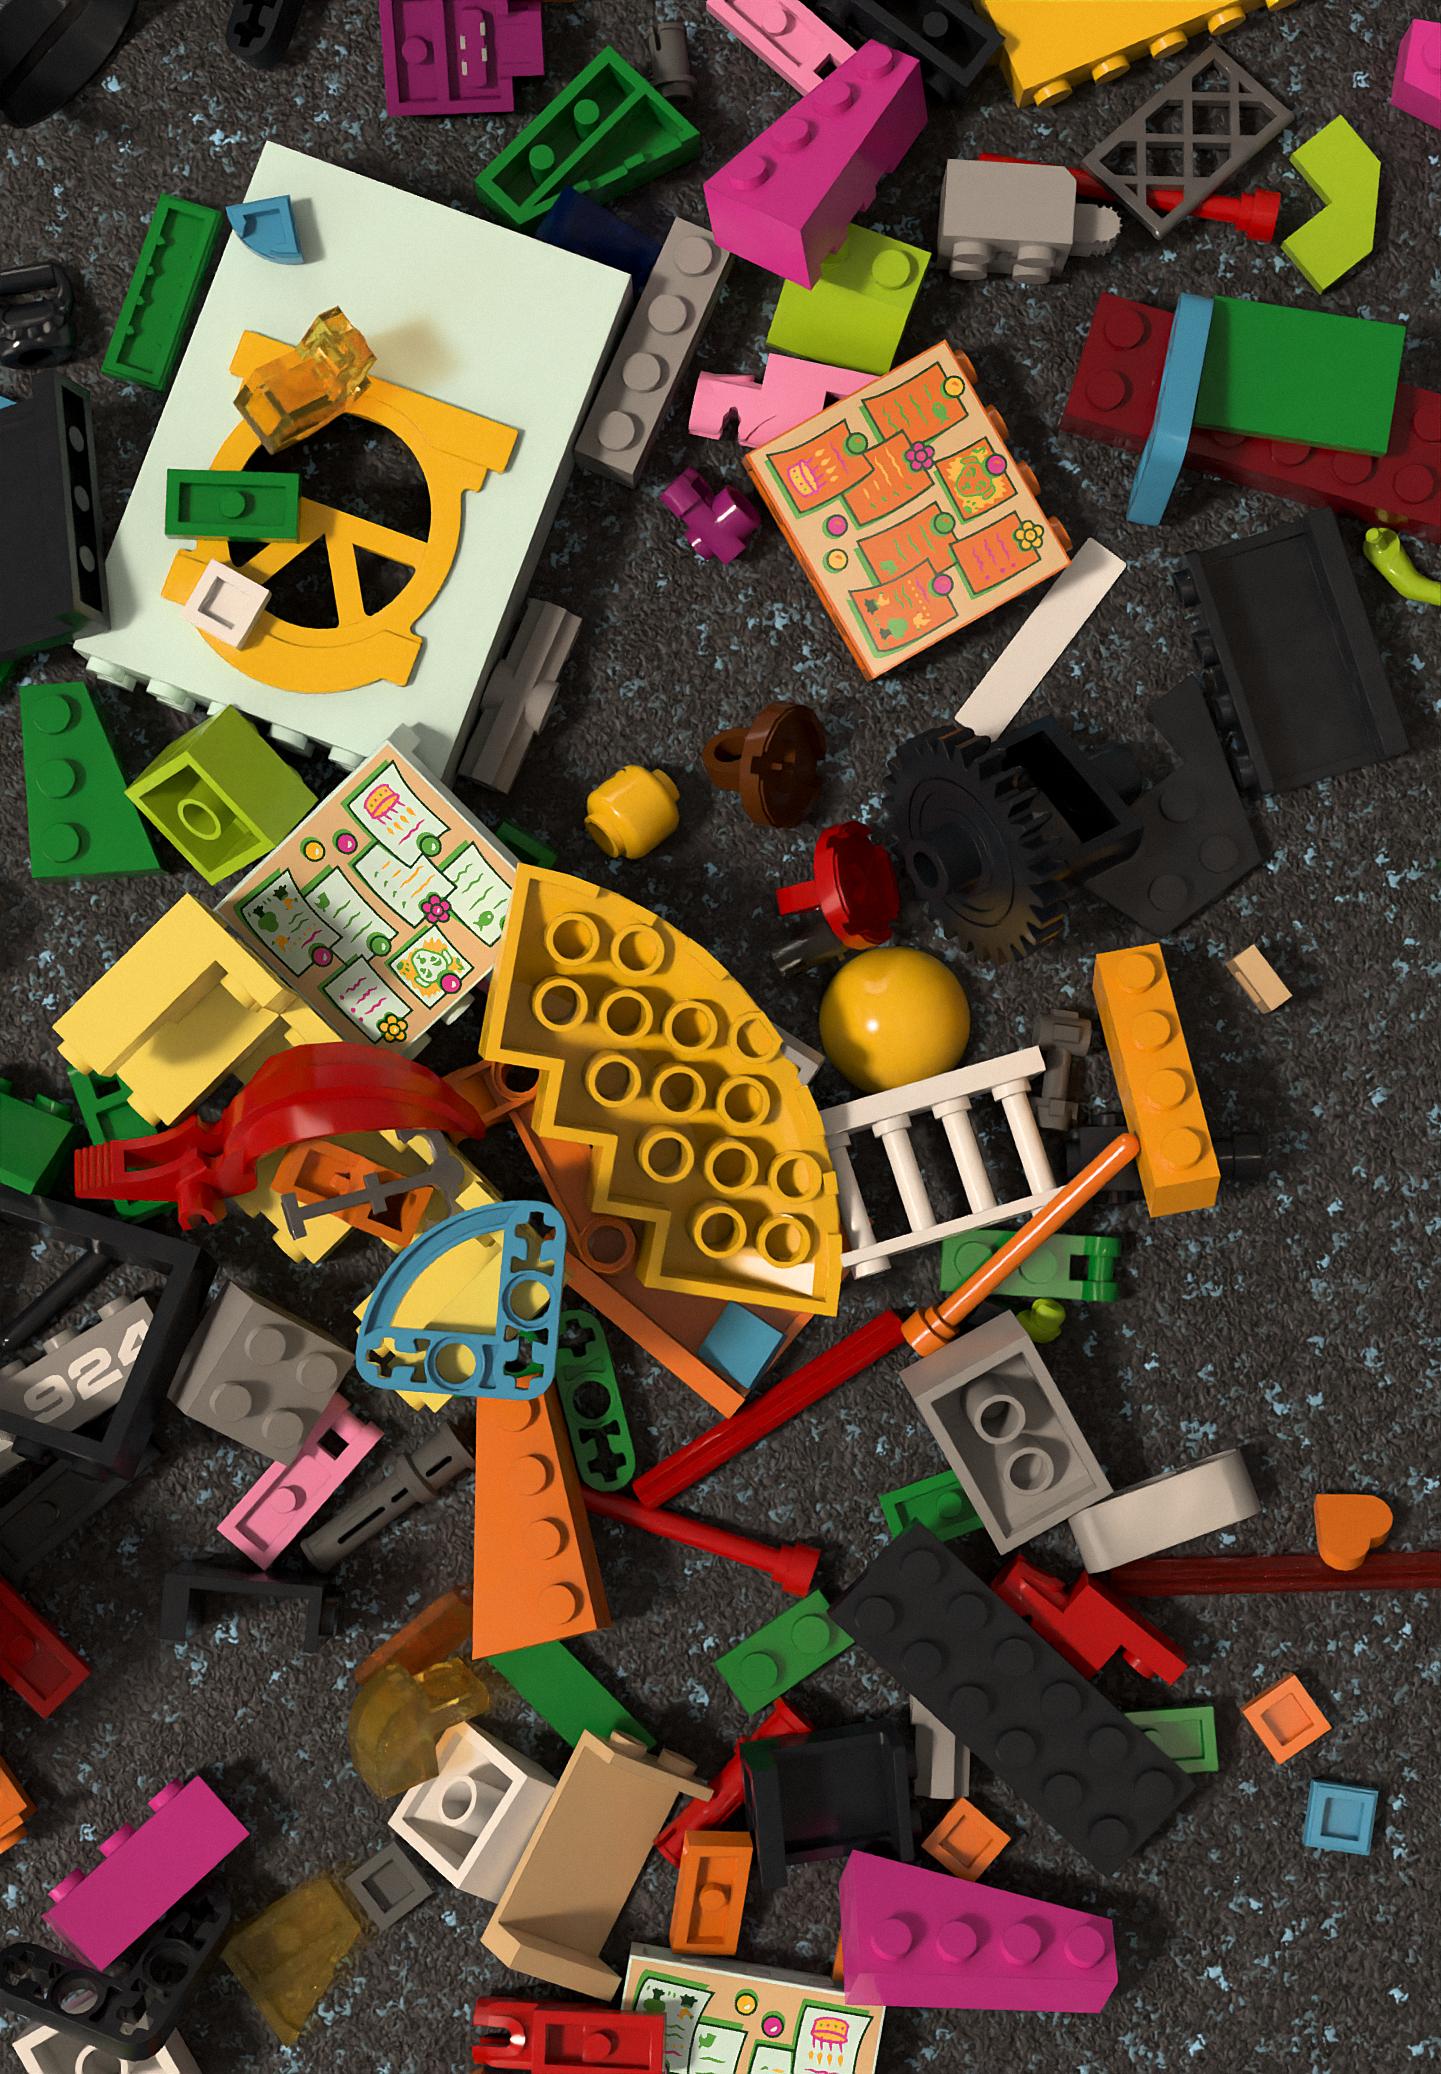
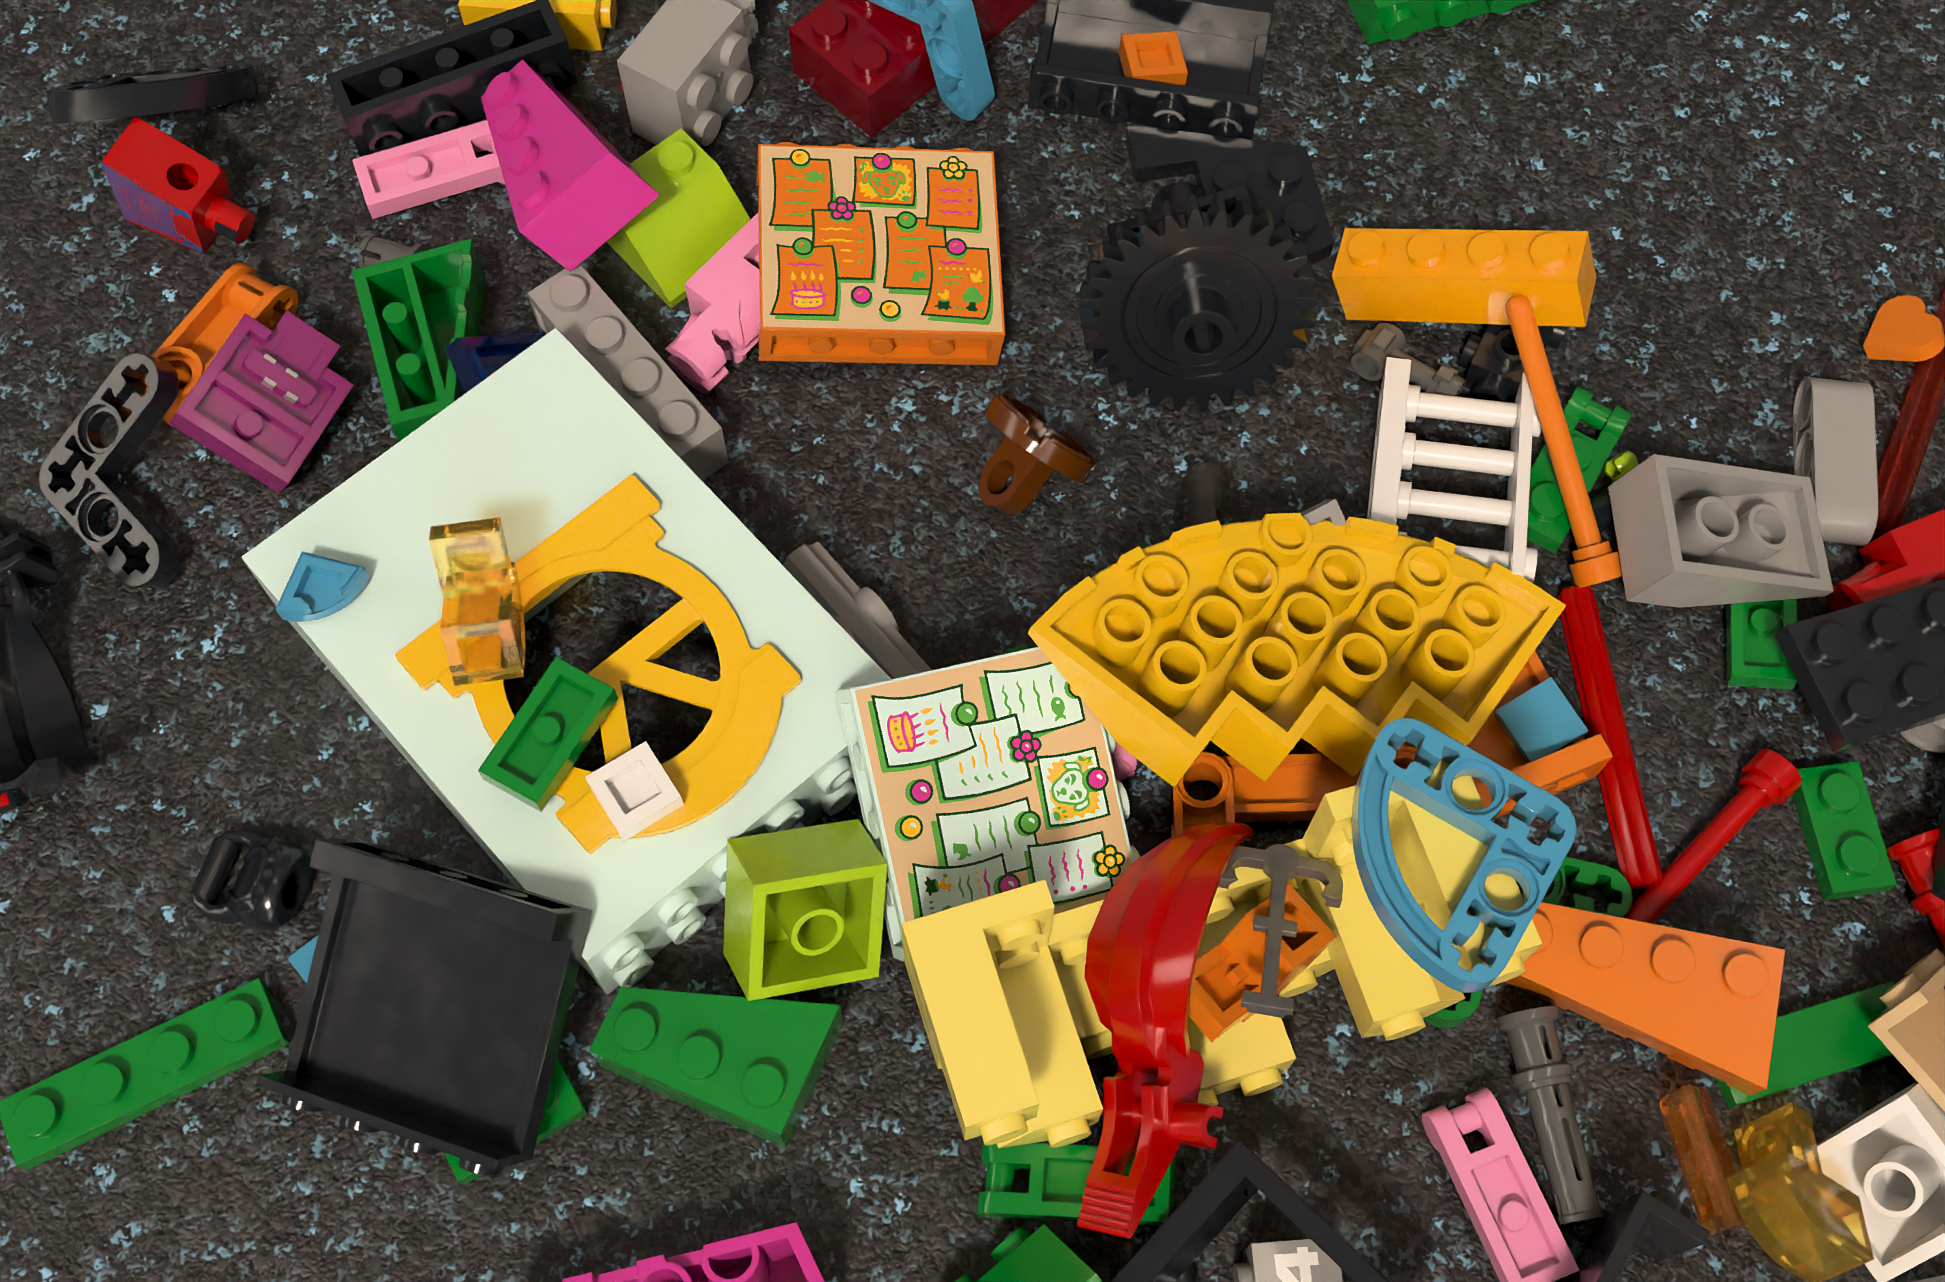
camera: 65 degrees left, 20 degrees down
(162, 294) = (311, 753): green plate -> none
(258, 1373) = (1381, 1163): light grey brick -> none
(632, 812) = (1010, 583): yellow head -> none
(716, 523) = (799, 401): magenta plate -> none
(851, 887) = (1173, 433): red tile -> none
(893, 1019) = (1297, 462): yellow piece -> none
(1041, 640) = (1038, 228): white sticker -> none
(1258, 979) = (1405, 189): tan tile -> none
(1278, 662) = (1153, 57): none -> orange tile

